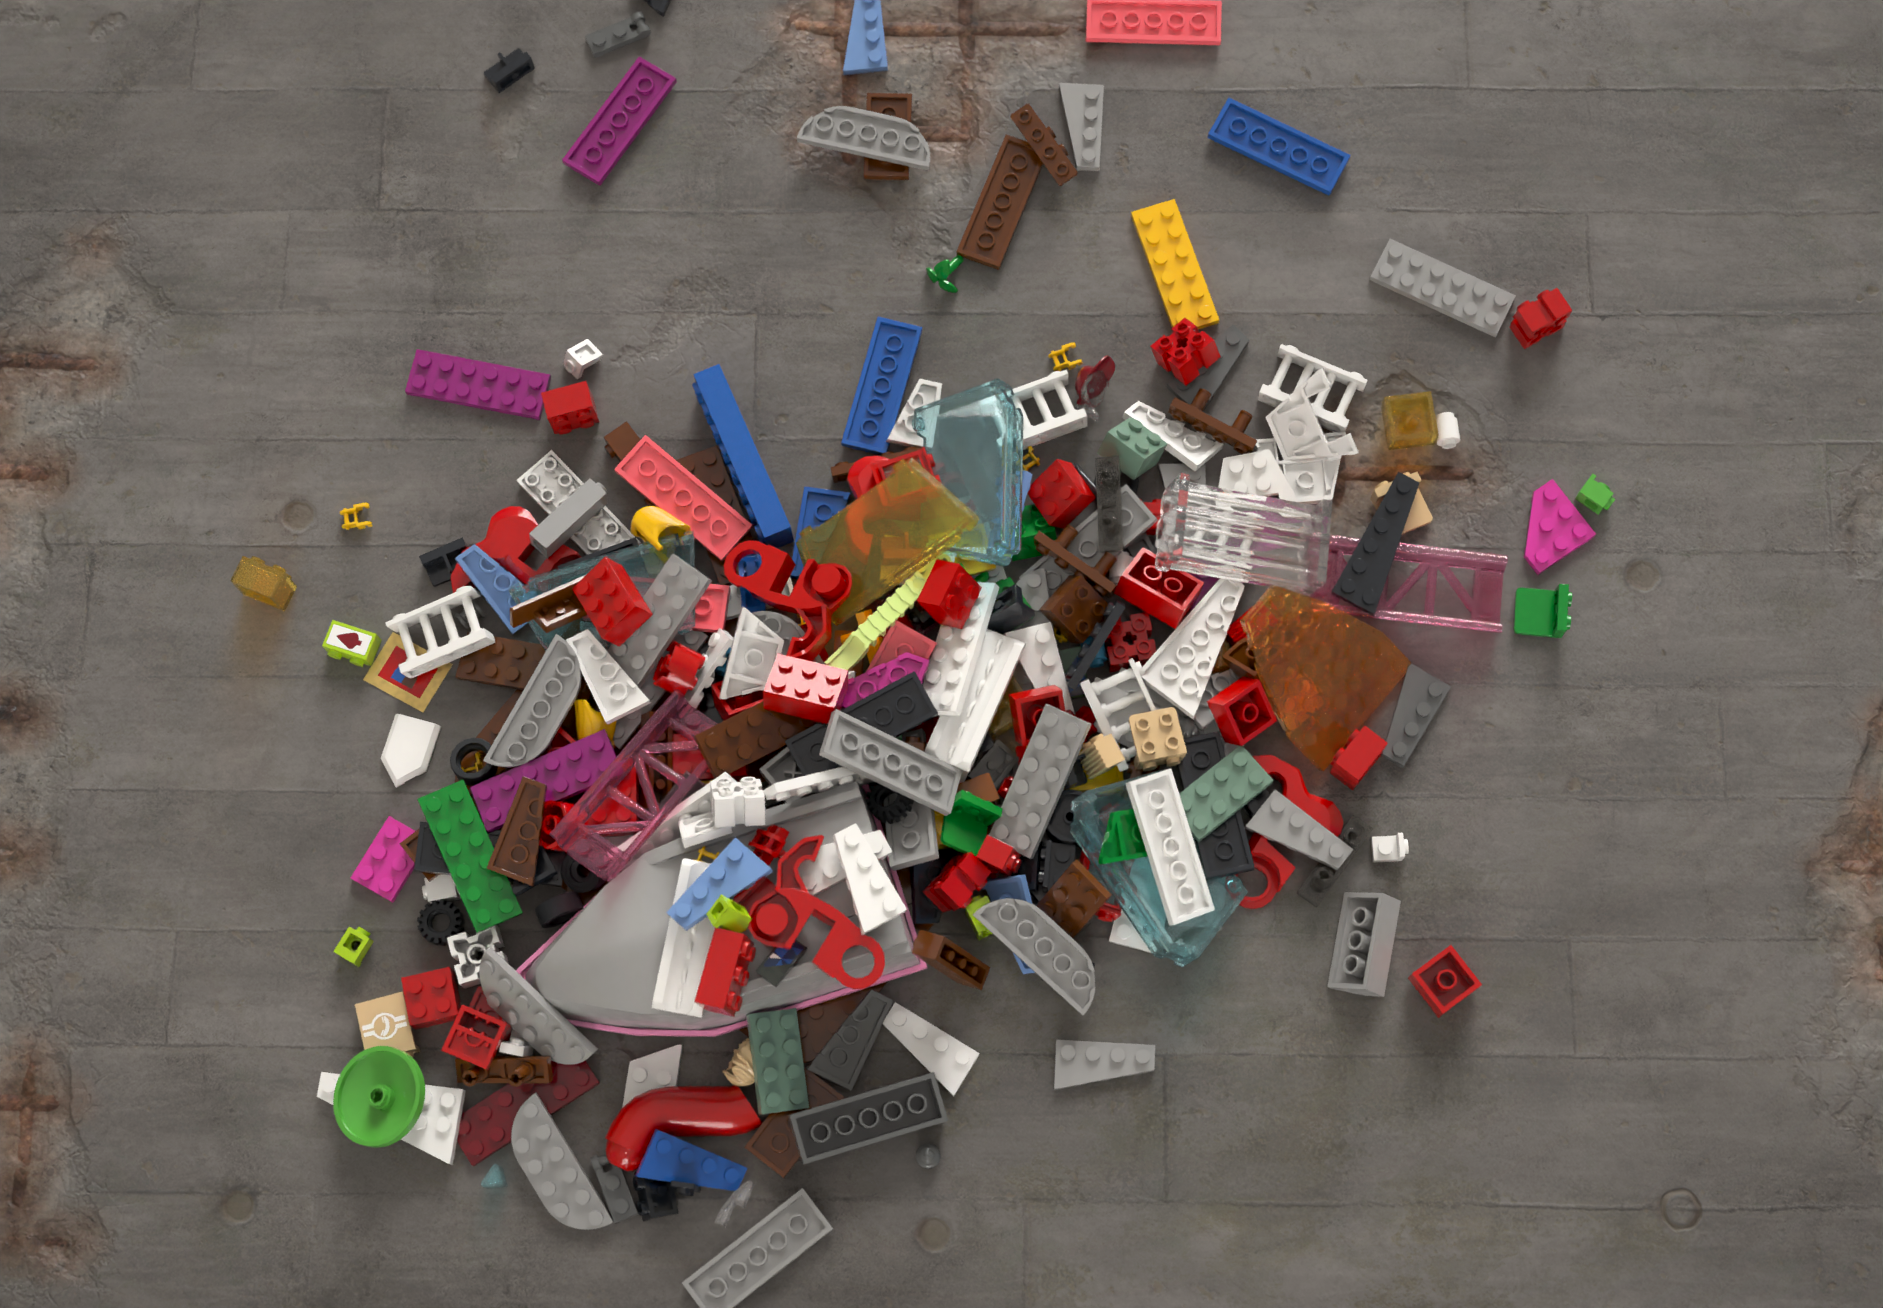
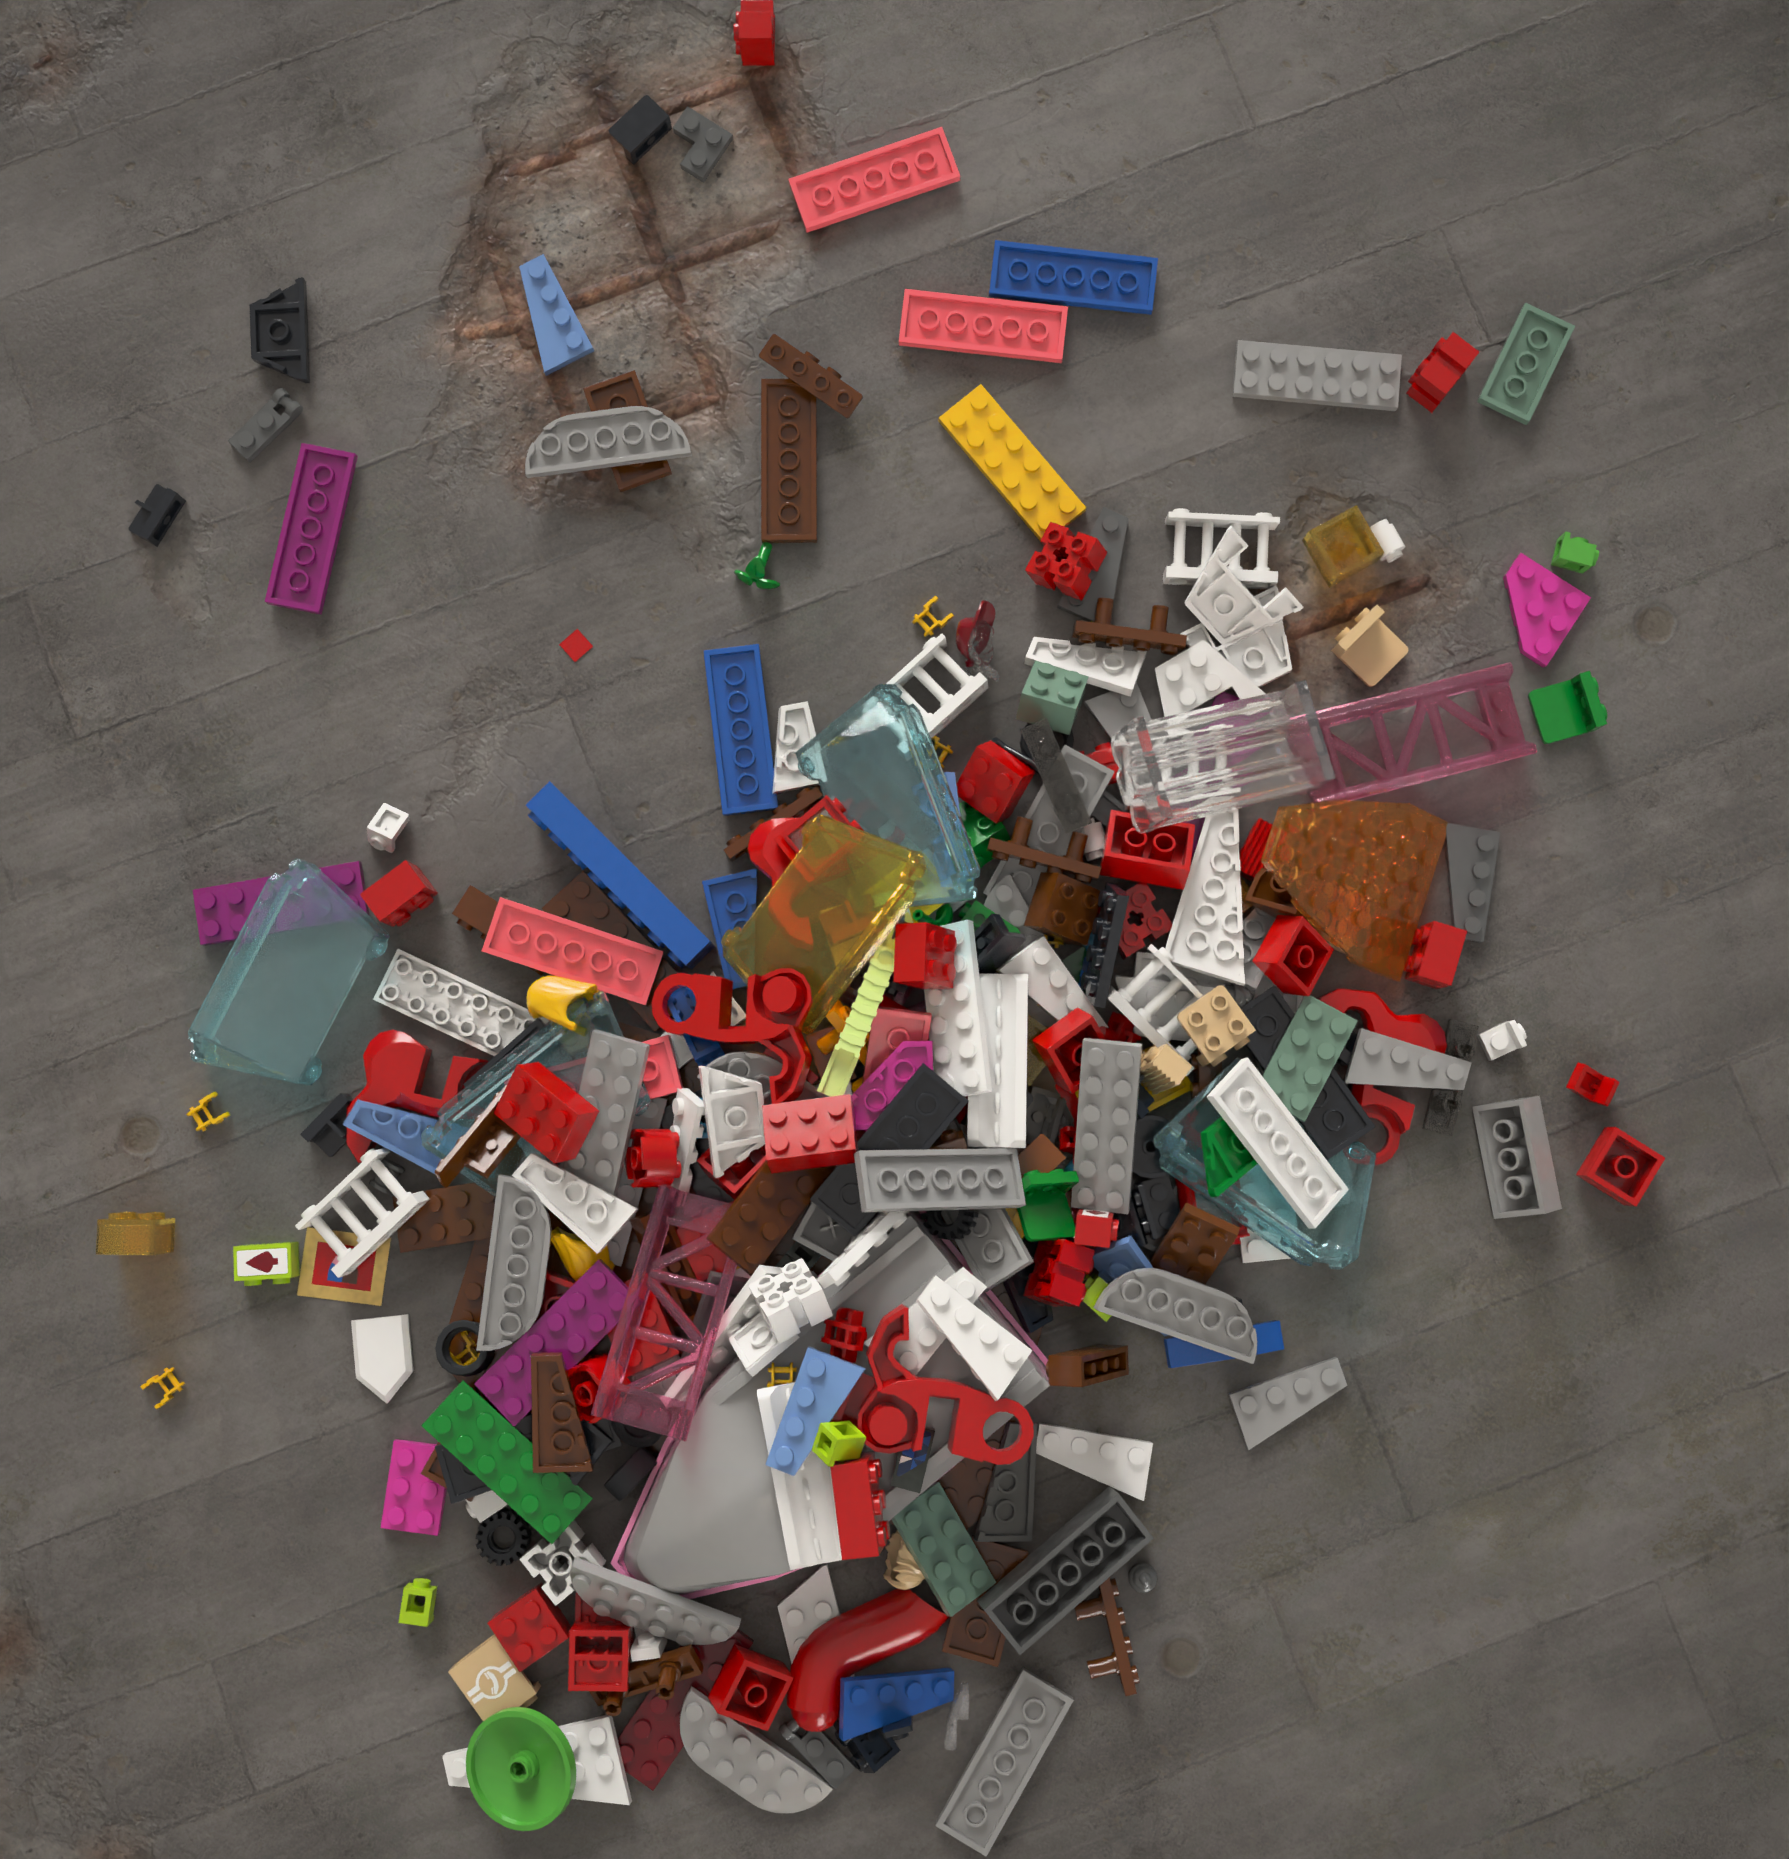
camera: 25 degrees left, 10 degrees up
(234, 714) = (168, 1396): none -> yellow piece
(457, 437) = (286, 978): none -> clear light blue windscreen
(495, 1178) = (686, 1795): clear light blue slope -> none
(569, 517) = (453, 1024): light grey brick -> none
(582, 1111) = (750, 1687): none -> red brick
(782, 278) = (576, 645): none -> red sticker
(882, 1212) = (1115, 1618): none -> reddish brown plate
(1037, 990) = (1183, 1353): none -> blue slope
(1084, 121) = (839, 321): light grey wing -> none
(1194, 157) = (983, 326): none -> coral plate
(1372, 559) = (1367, 723): black wing -> none
(1447, 910) = (1592, 1085): none -> red bracket
(1613, 338) = (1525, 364): none -> sand green plate

